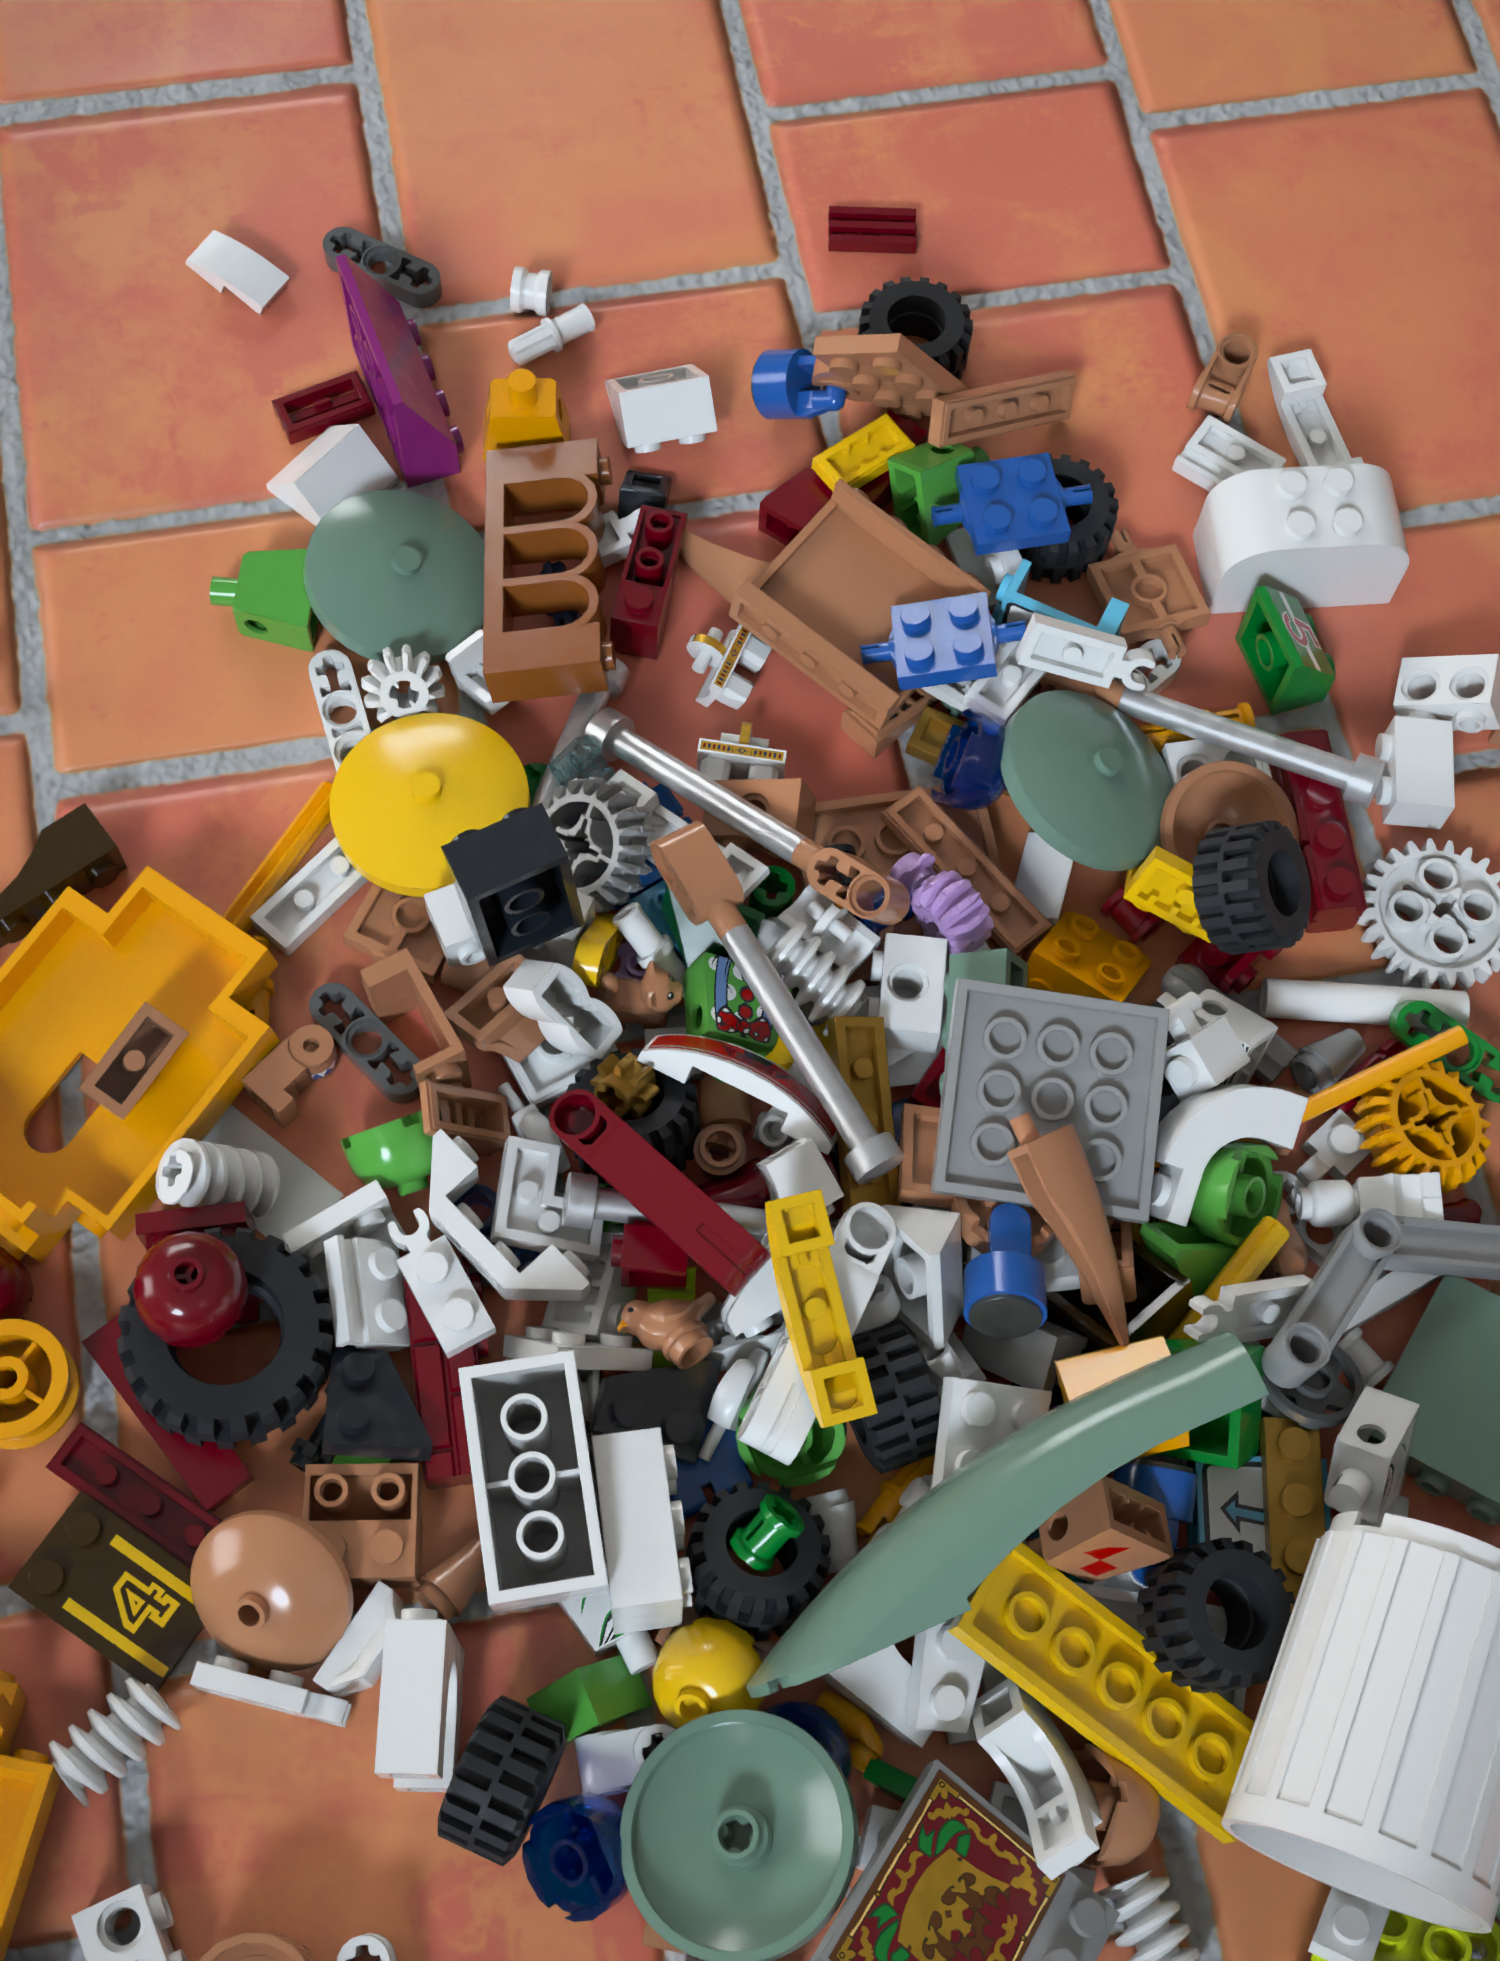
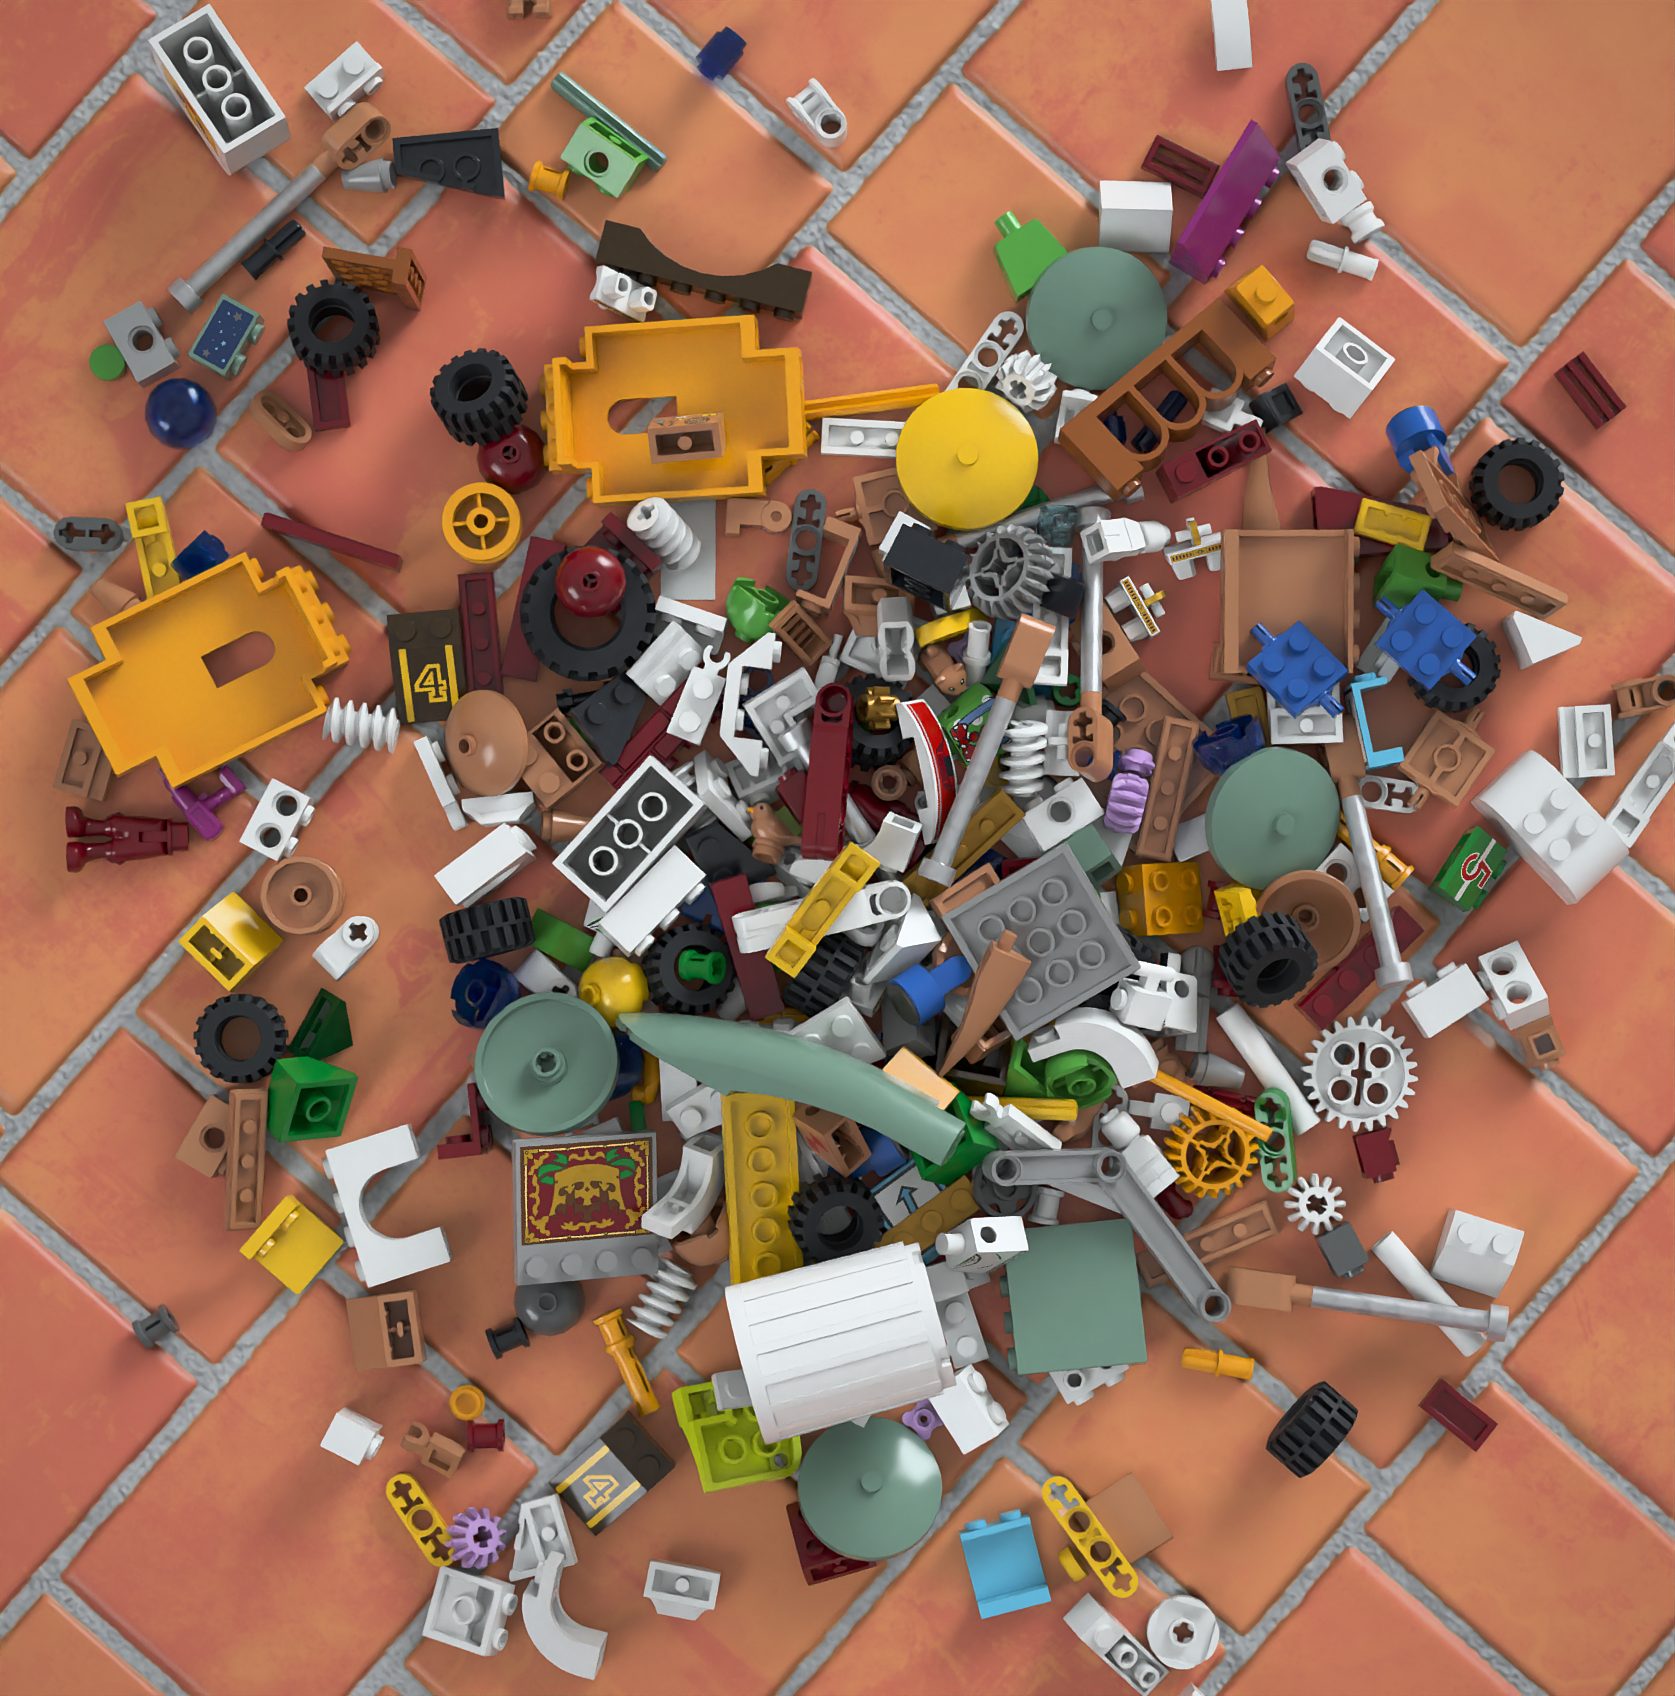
camera: 55 degrees right, 20 degrees up
(461, 285) = (1309, 171): none -> white brick
(651, 713) = (1123, 538): none -> white piece
(669, 805) = (1064, 595): none -> black slope
(815, 1476) = (752, 969): none -> dark red tile
(1081, 653) = (1346, 758): white plate -> none
(1087, 419) = (1535, 640): none -> white slope

